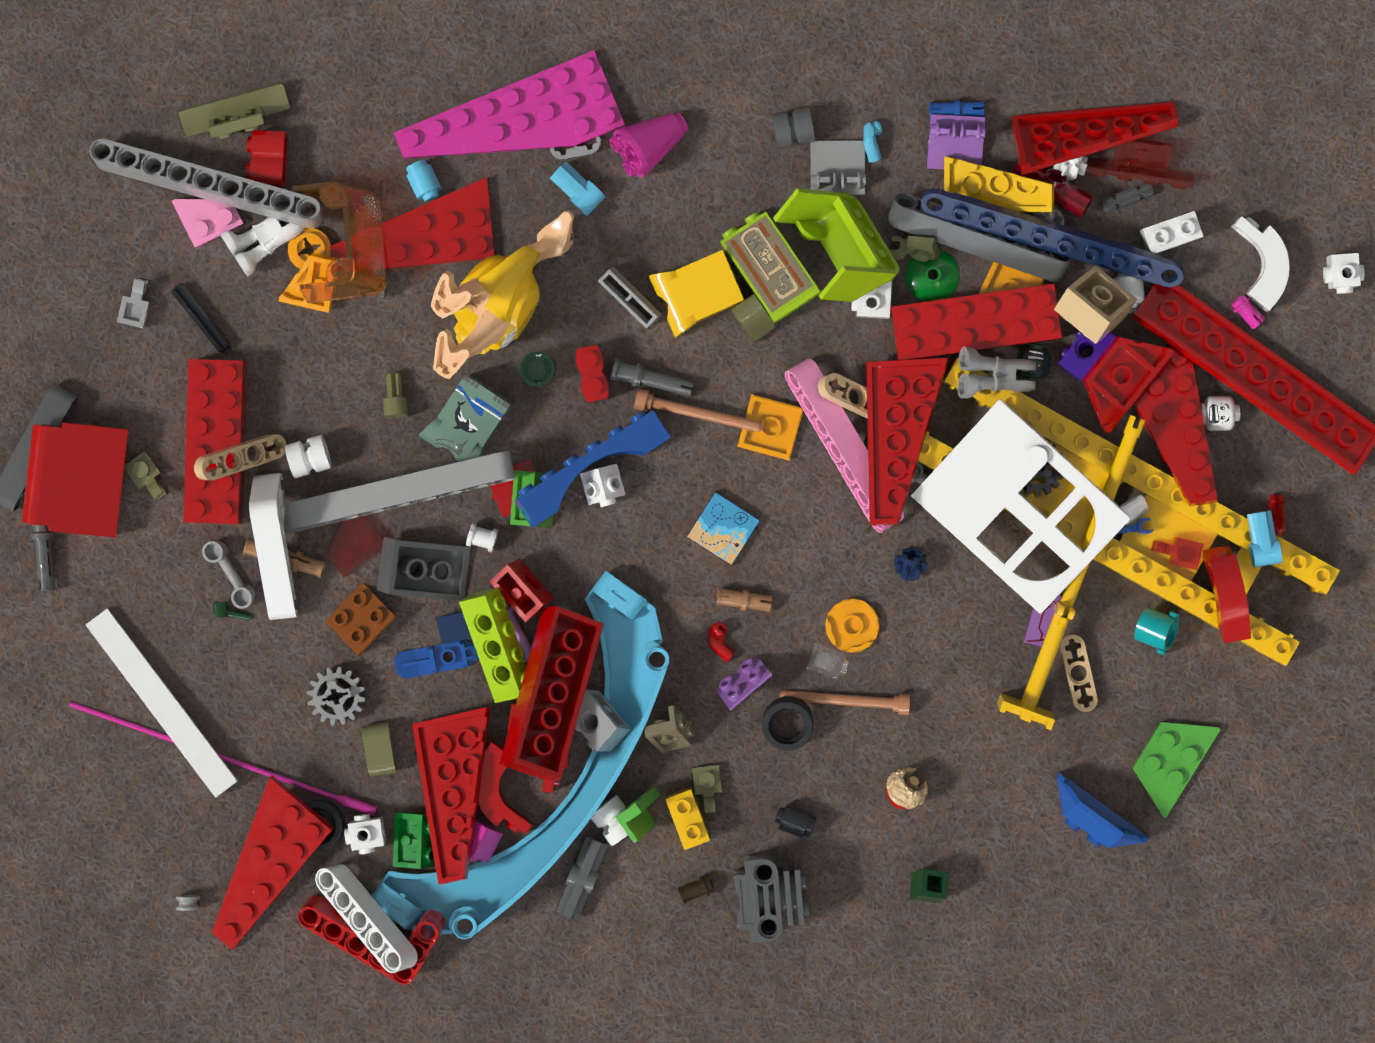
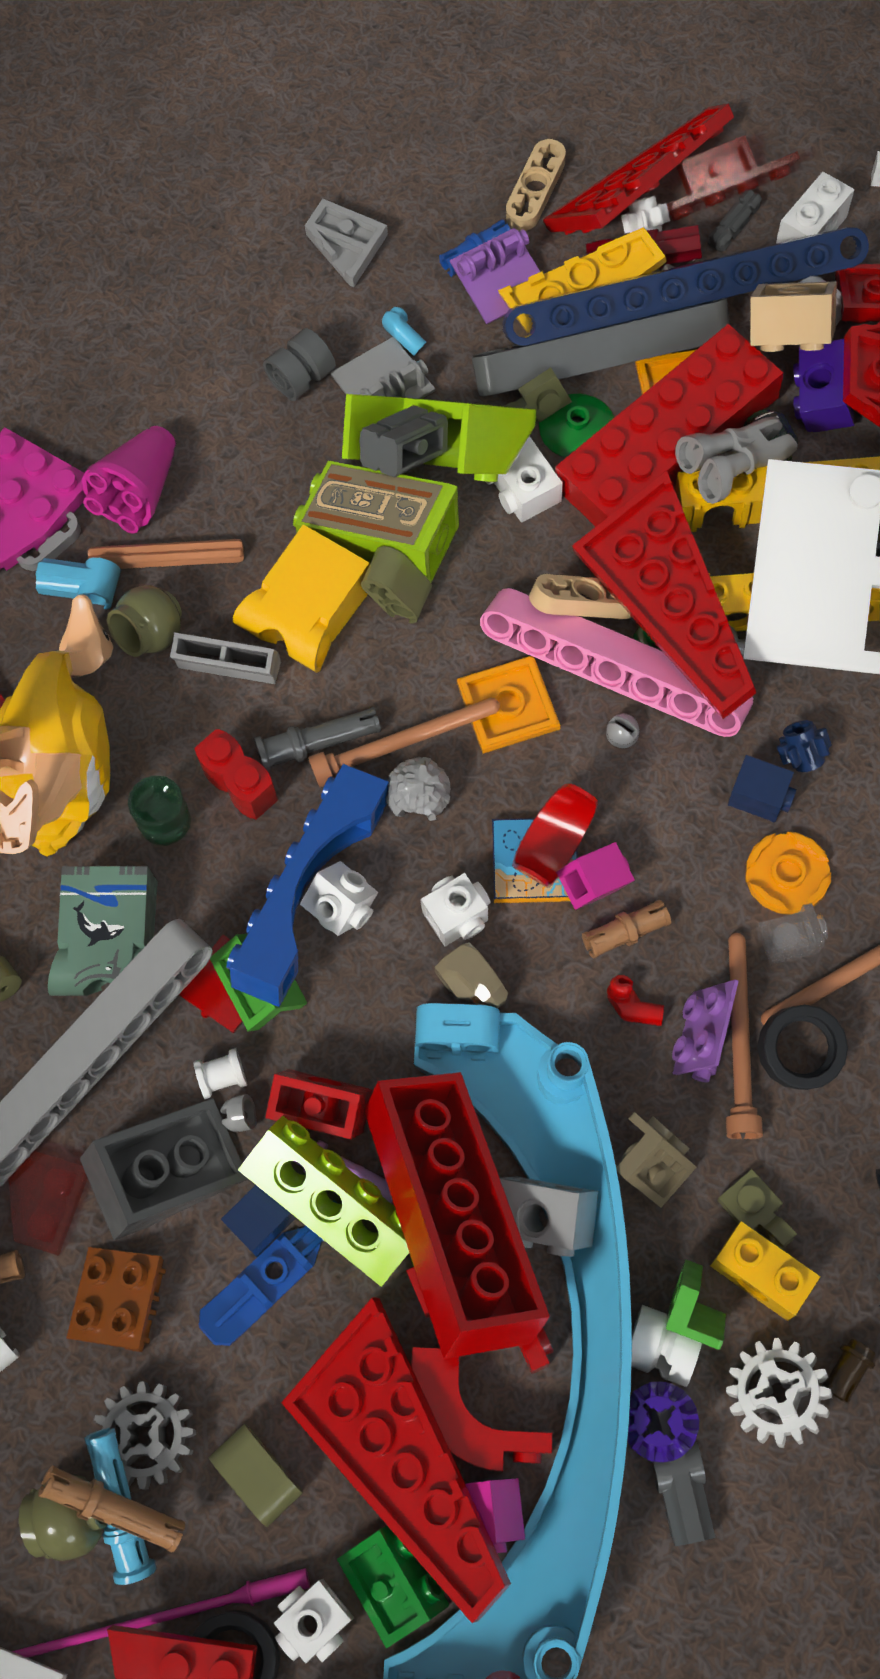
camera: 25 degrees left, 20 degrees down
(276, 710) = (55, 1529): none -> olive piece
(296, 717) = (95, 1501): none -> medium nougat pin
(302, 733) = (128, 1550): none -> medium azure pin
(476, 566) = (236, 1118): none -> light grey hinge
(595, 862) = (683, 1422): none -> dark purple gear
(599, 245) = (145, 620): none -> olive piece
(638, 202) = (171, 553): none -> nougat axle
(643, 574) = (471, 977): none -> dark tan rock
(650, 534) = (456, 908): none -> white brick
(651, 889) = (800, 1383): none -> white gear
(685, 449) = (418, 788): none -> light grey piece
(733, 528) = (555, 834): none -> red piece
(733, 738) = (743, 1116): none -> nougat piece
(746, 563) = (595, 875): none -> dark pink brick
(813, 234) = (403, 441): none -> dark grey brick
(816, 487) = (620, 736): none -> light grey hinge
(870, 573) = (762, 789): none -> dark blue brick
(880, 49) = (345, 238): none -> light grey wing
(1037, 69) = (535, 172): none -> tan beam

